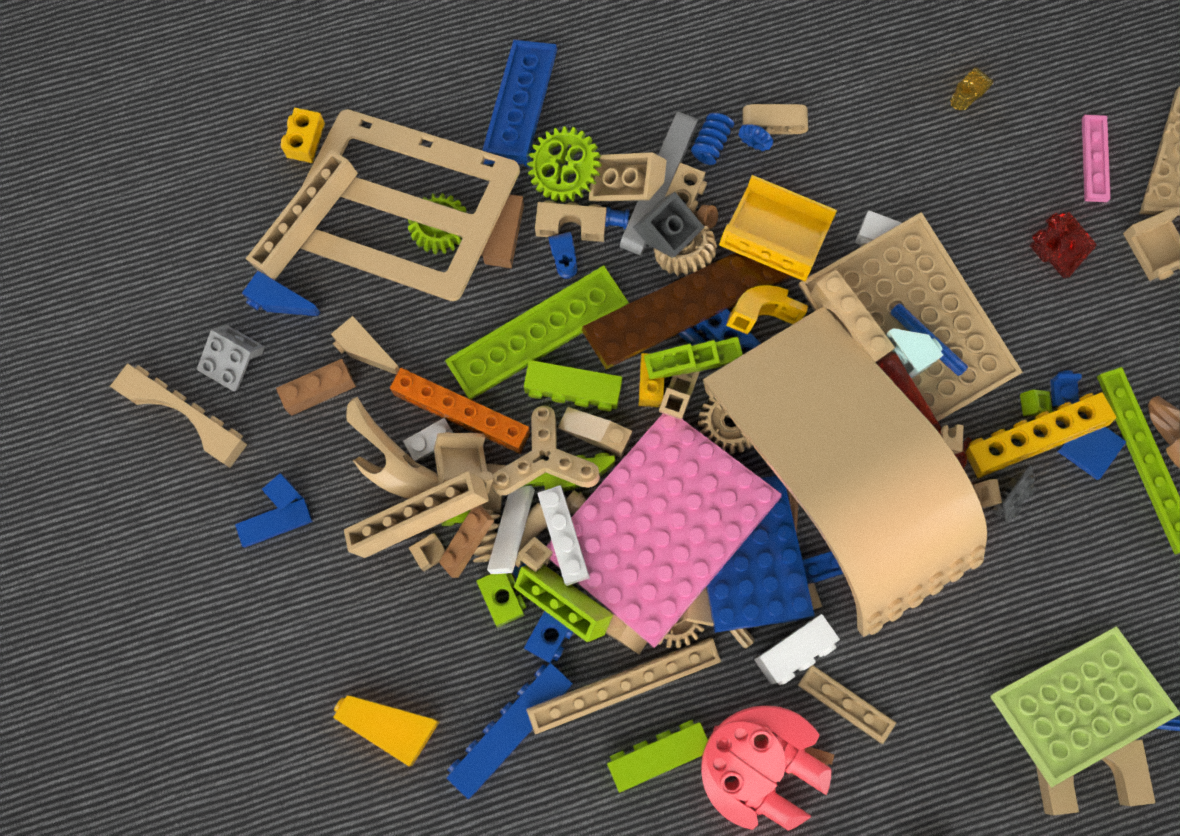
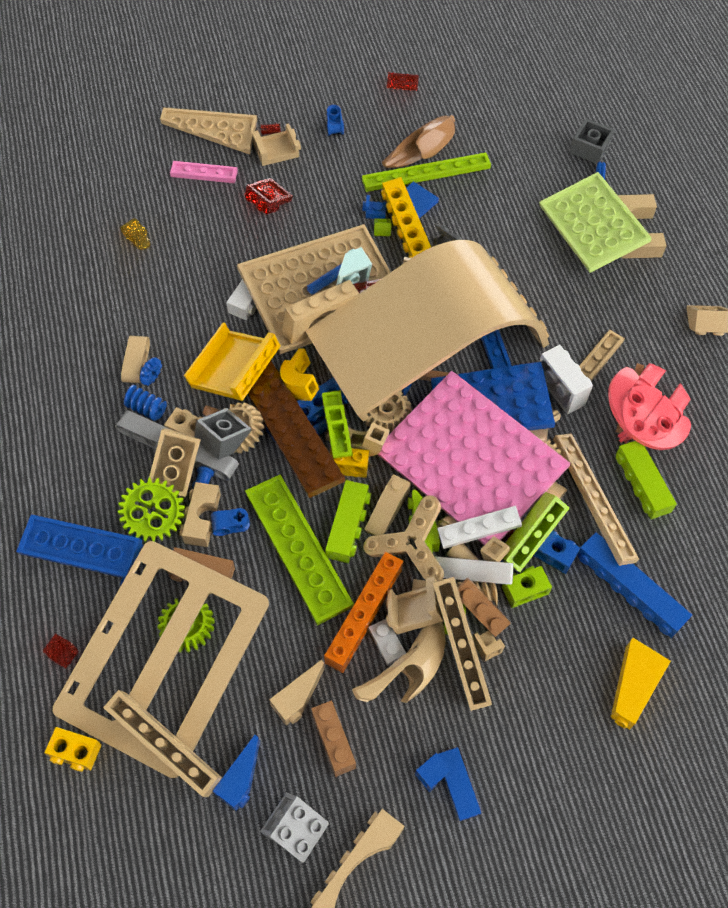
camera: 90 degrees left, 15 degrees down
(405, 104) = (60, 651): none -> clear red panel

